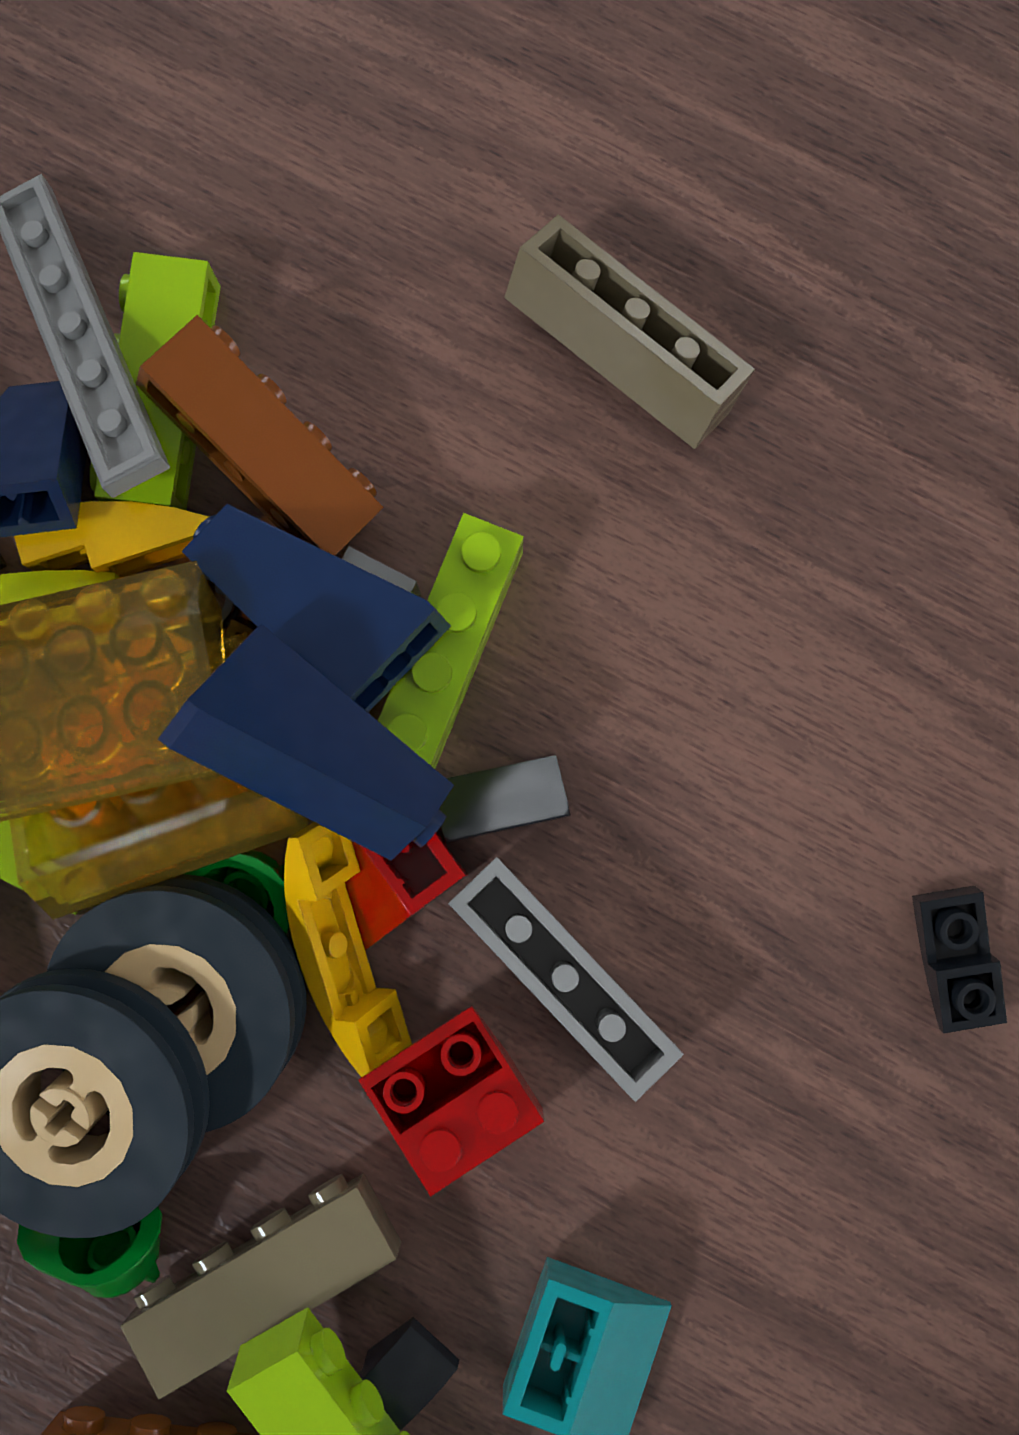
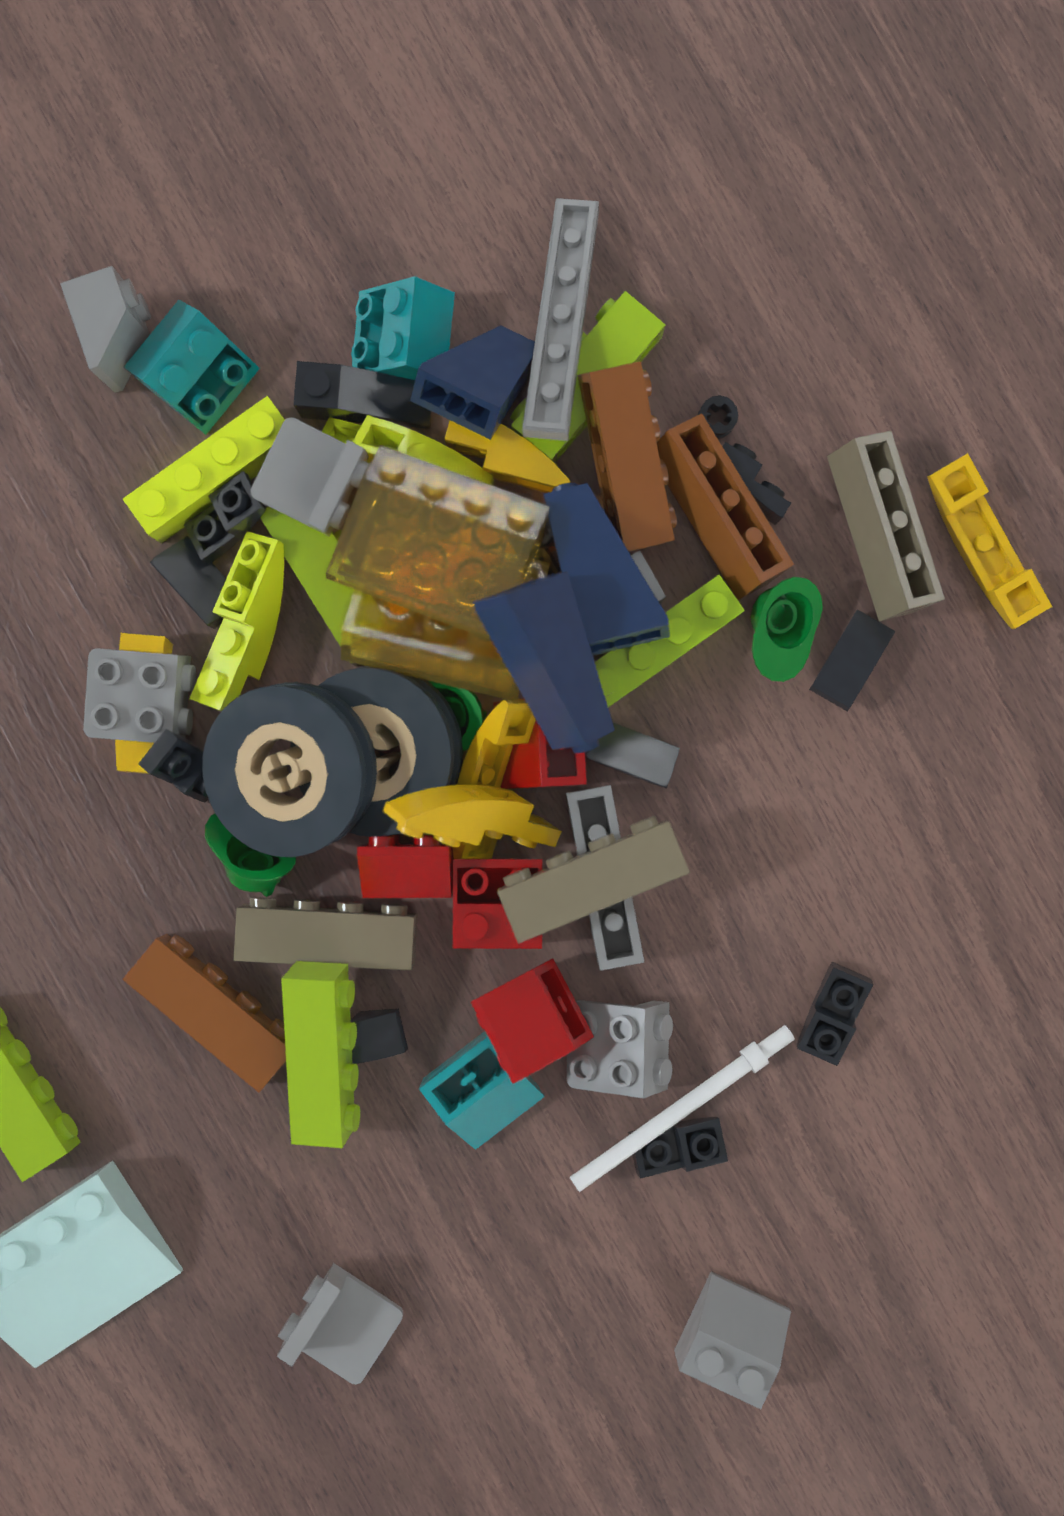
camera: 35 degrees right, 5 degrees up
(299, 1138) = (405, 869): none -> red slope
(336, 1011) = (468, 813): none -> yellow slope
(356, 348) = (717, 403): none -> black bush
(411, 376) = (766, 494): none -> black slope
(416, 433) = (721, 508): none -> dark orange brick
(547, 997) = (592, 880): none -> dark tan brick
(586, 526) = (785, 627): none -> green piece
(591, 1225) = (532, 1020): none -> red slope
(693, 515) = (852, 660): none -> black slope
(725, 1180) = (627, 1049): none -> light grey bracket
(756, 282) = (984, 545): none -> yellow slope
(879, 1254) = (685, 1145): none -> black slope
(897, 1082) = (752, 1058): none -> white bar

